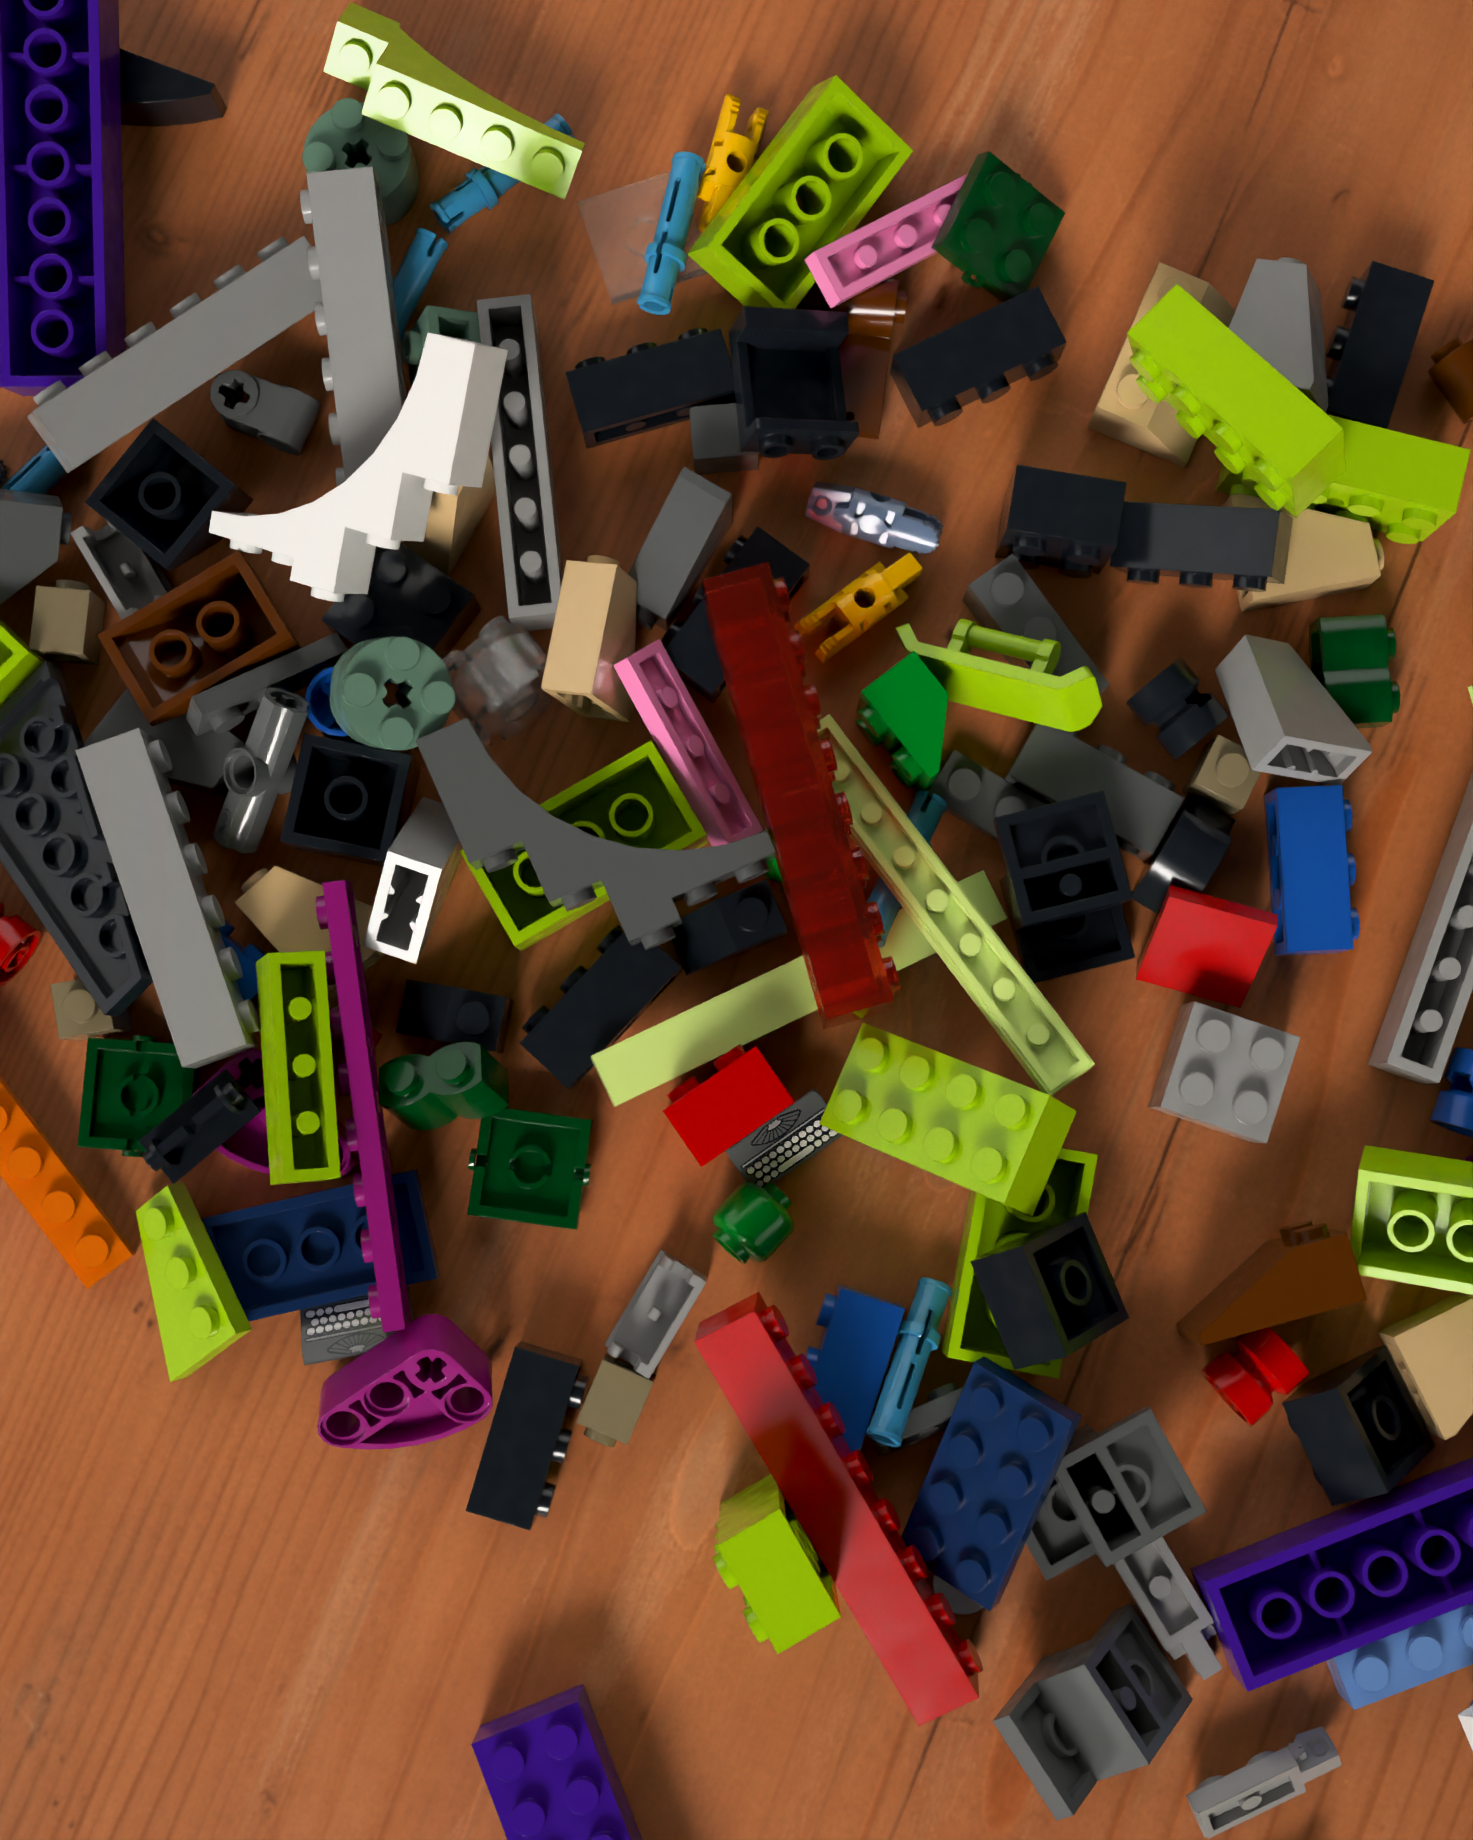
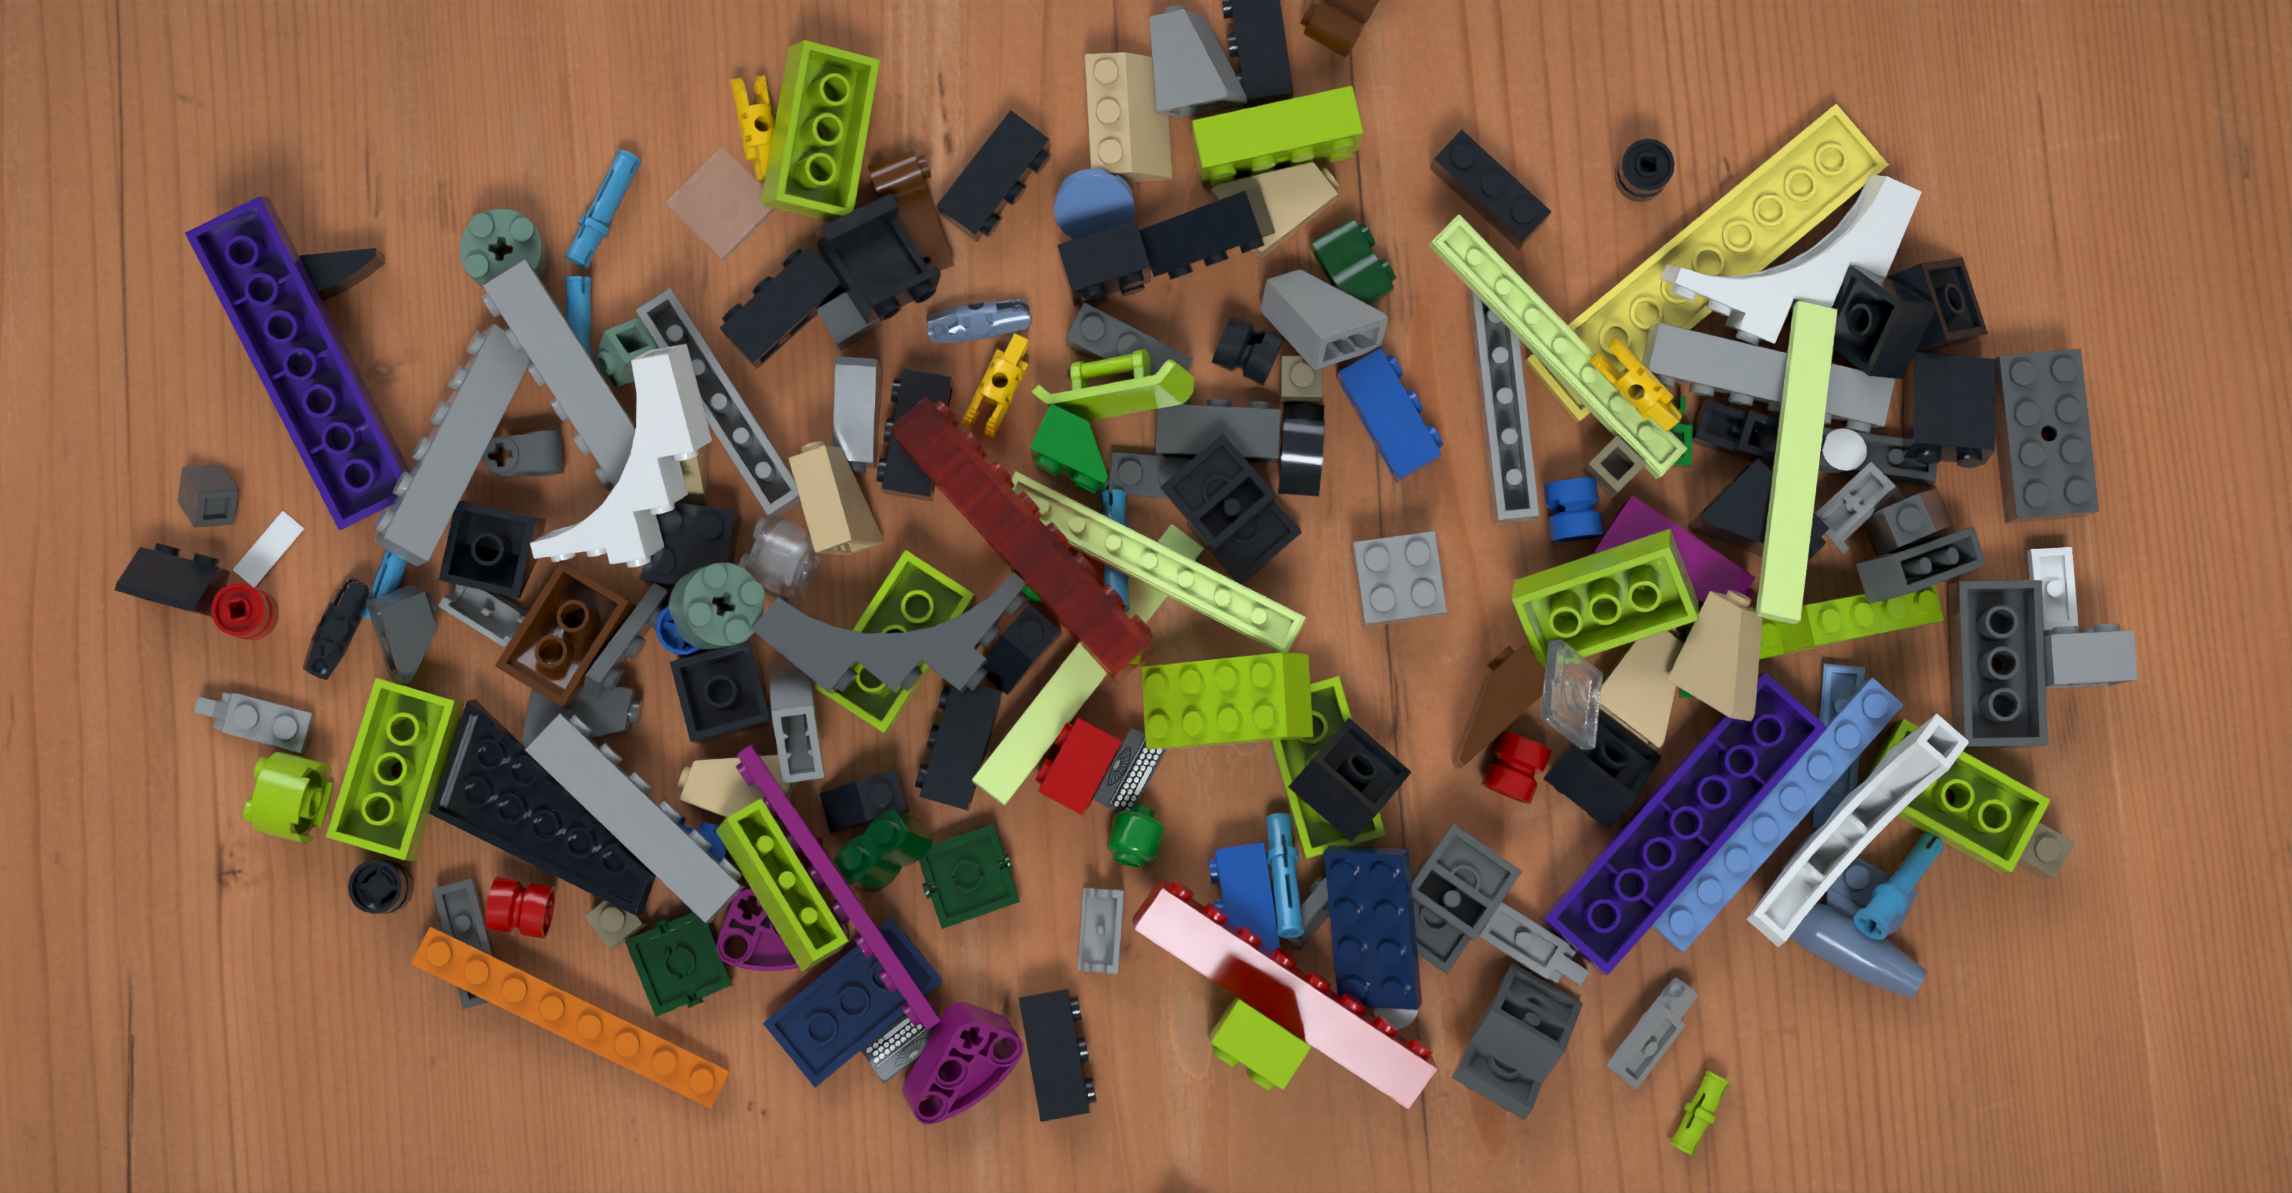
camera: 30 degrees left, 0 degrees up
(67, 623) = (463, 668): dark tan brick -> none
(188, 1283) = (777, 1069): lime wing -> none
(198, 1127) = (734, 959): black hinge -> none
(260, 770) = (651, 701): dark grey piece -> none
(438, 106) = (540, 189): arch -> none
(614, 1402) = (1103, 1002): dark tan brick -> none
(666, 254) = (745, 208): dark azure pin -> none
(687, 745) = (931, 540): bright pink plate -> none
(882, 246) = (902, 123): bright pink plate -> none
(998, 229) = (964, 82): dark green plate -> none
(1081, 438) = (1093, 202): none -> medium blue tile
(1206, 946) = (1344, 501): red tile -> none
(1236, 402) = (1178, 135): lime brick -> none
(1375, 1324) = (1571, 695): none -> clear tile

